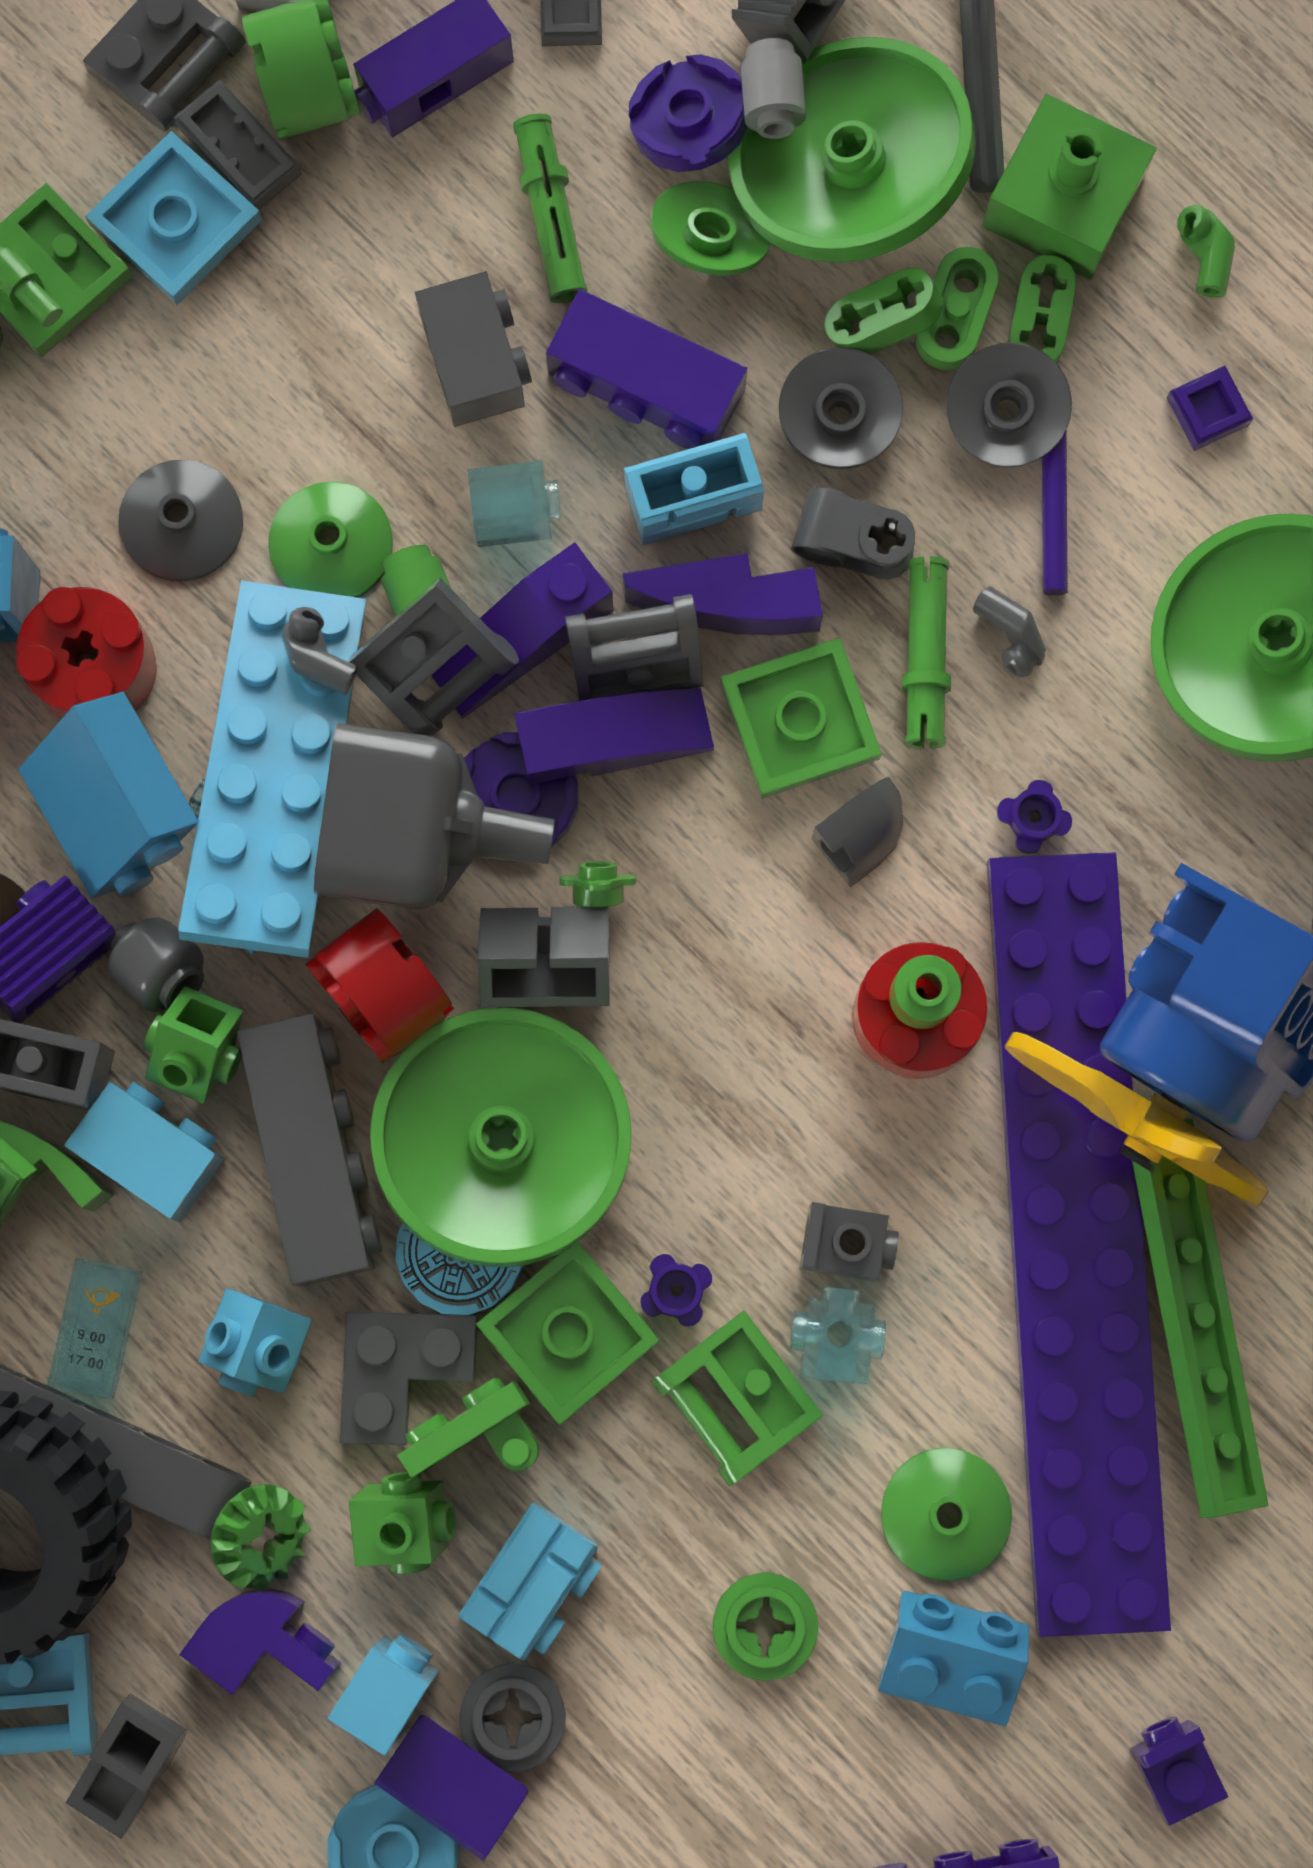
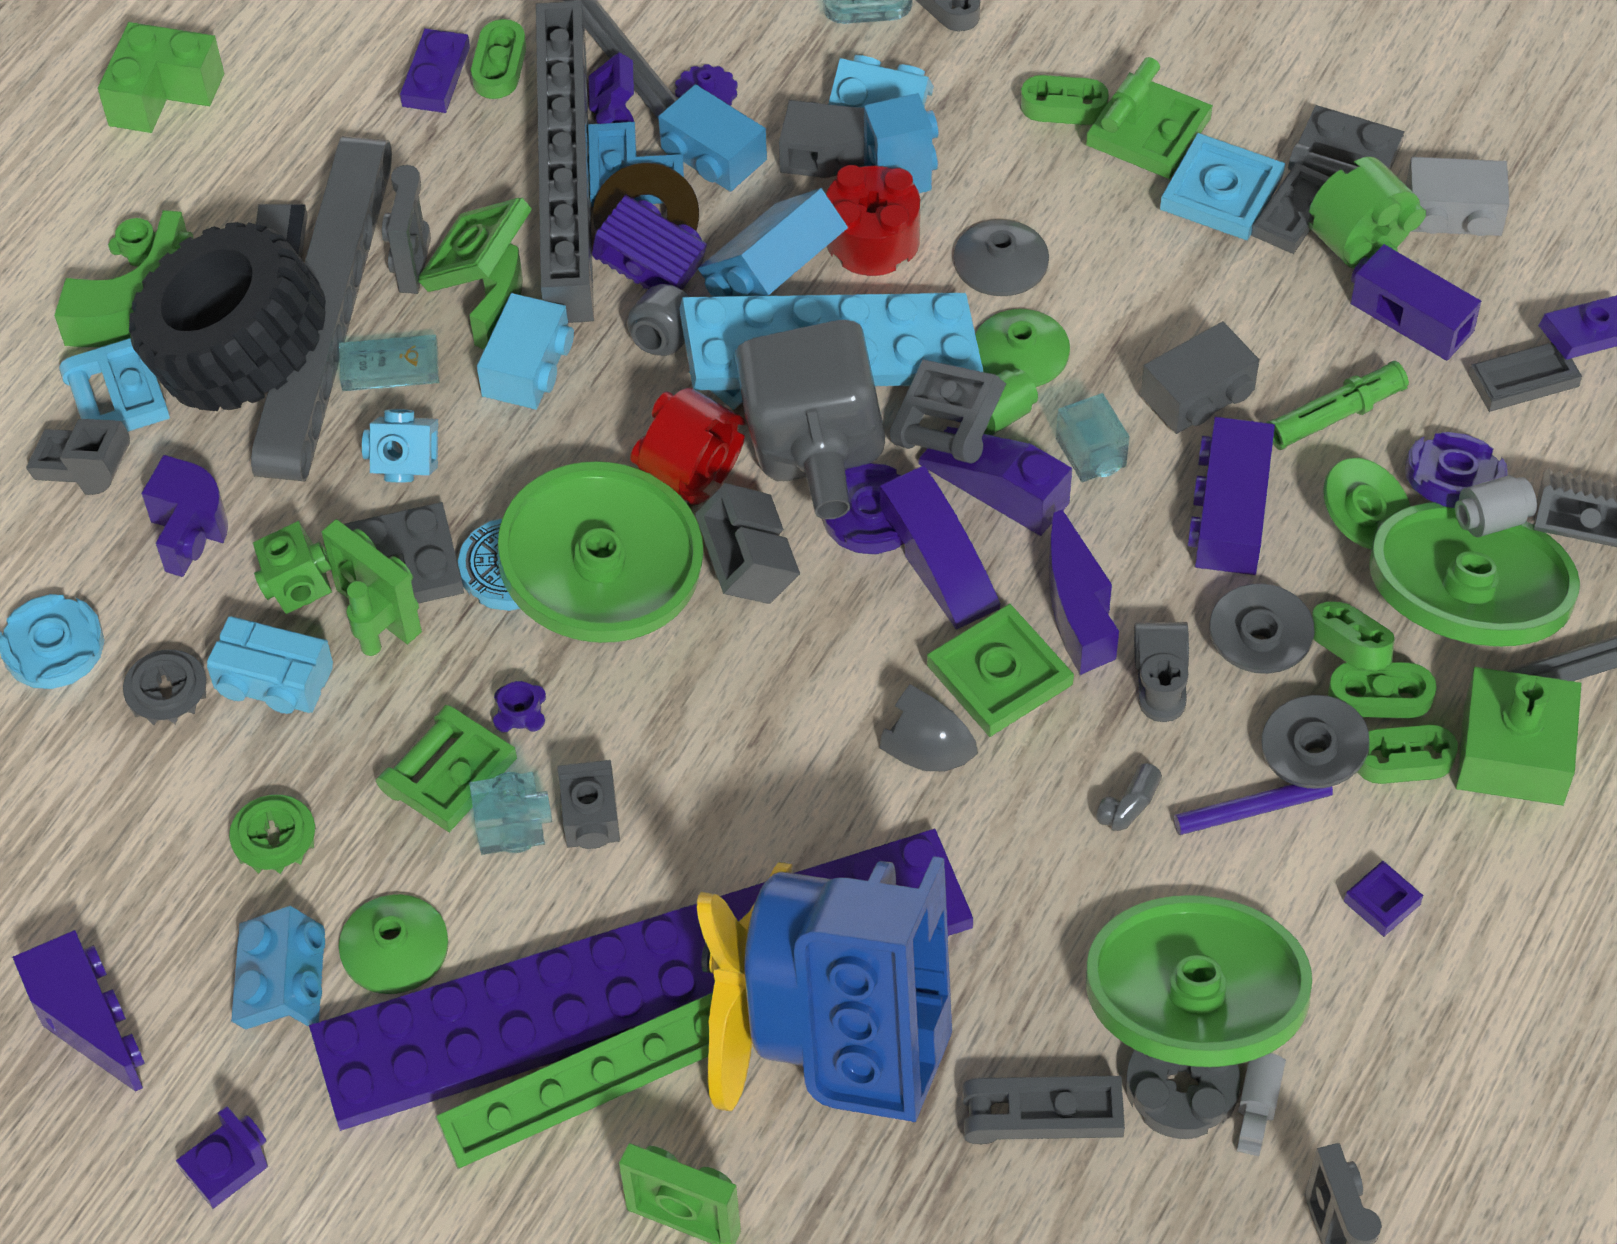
camera: 75 degrees right, 25 degrees down
(185, 1054) = (609, 351): bright green brick -> none
(243, 1521) = (282, 500): bright green gear -> none
(307, 1149) = (581, 427): dark grey brick -> none
(309, 653) = (921, 332): dark grey arm -> none
(385, 1692) = (162, 583): medium azure brick -> none
(452, 1786) = (103, 656): dark purple slope -> none
(567, 1332) = (465, 640): bright green plate -> none
(598, 884) = (817, 568): bright green plate -> none
(640, 664) = (1003, 555): dark grey plate -> none
(694, 488) = (1150, 542): medium azure brick -> none
(911, 1050) = (790, 803): red brick -> none
(912, 1008) = (792, 759): bright green brick -> none
(926, 673) = (1074, 745): bright green pin -> none
(1036, 798) = (982, 841): dark purple plate -> none
(1211, 245) = (1525, 861): bright green arm -> none

